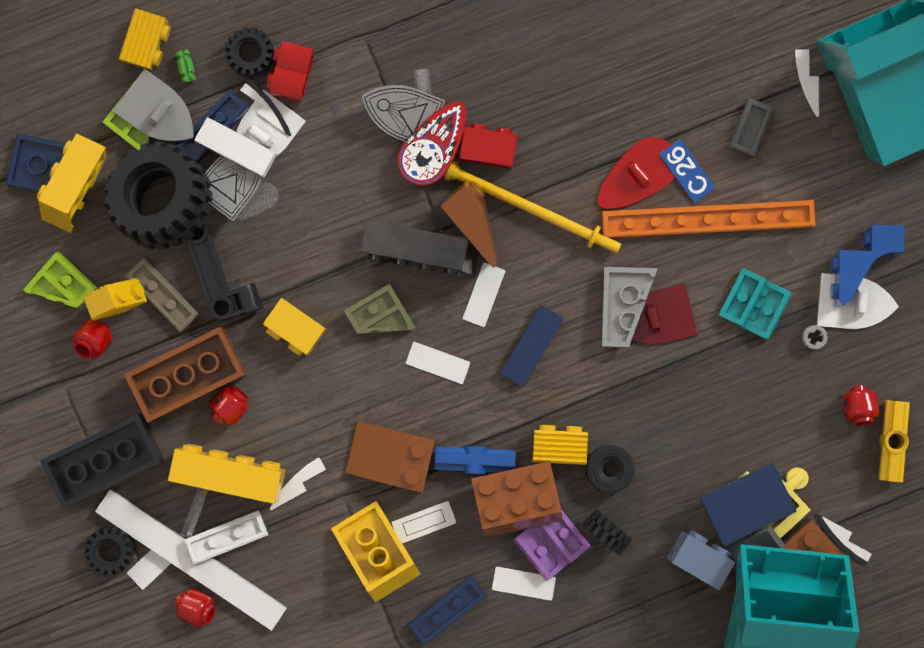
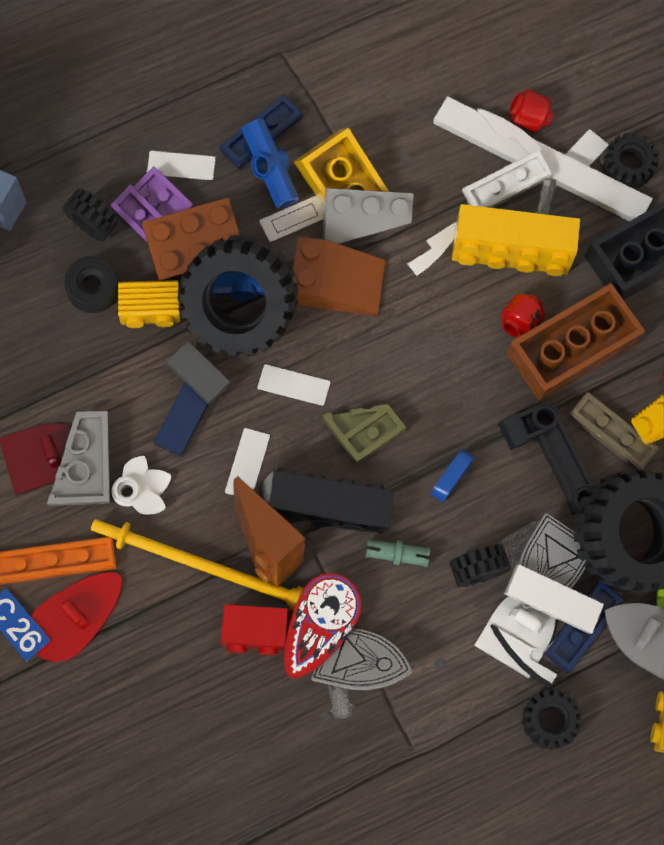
camera: 170 degrees right, 15 degrees down
(185, 66) = (625, 696): bright green piece -> none
(219, 590) = (508, 130): none -> white sticker
(291, 71) = (499, 699): red brick -> none
(294, 181) = (479, 565): none -> black tyre
(294, 327) = (459, 405): yellow brick -> none
(307, 265) = (452, 475): none -> blue beam
(361, 516) = (363, 213): none -> light grey wing
(362, 202) = (397, 552): none -> sand green pin
(442, 571) = (270, 163): none -> blue piece
(470, 460) = (216, 327): none -> black tyre
(520, 375) = (198, 373): none -> dark grey tile
(572, 279) = (146, 487): none -> white plate

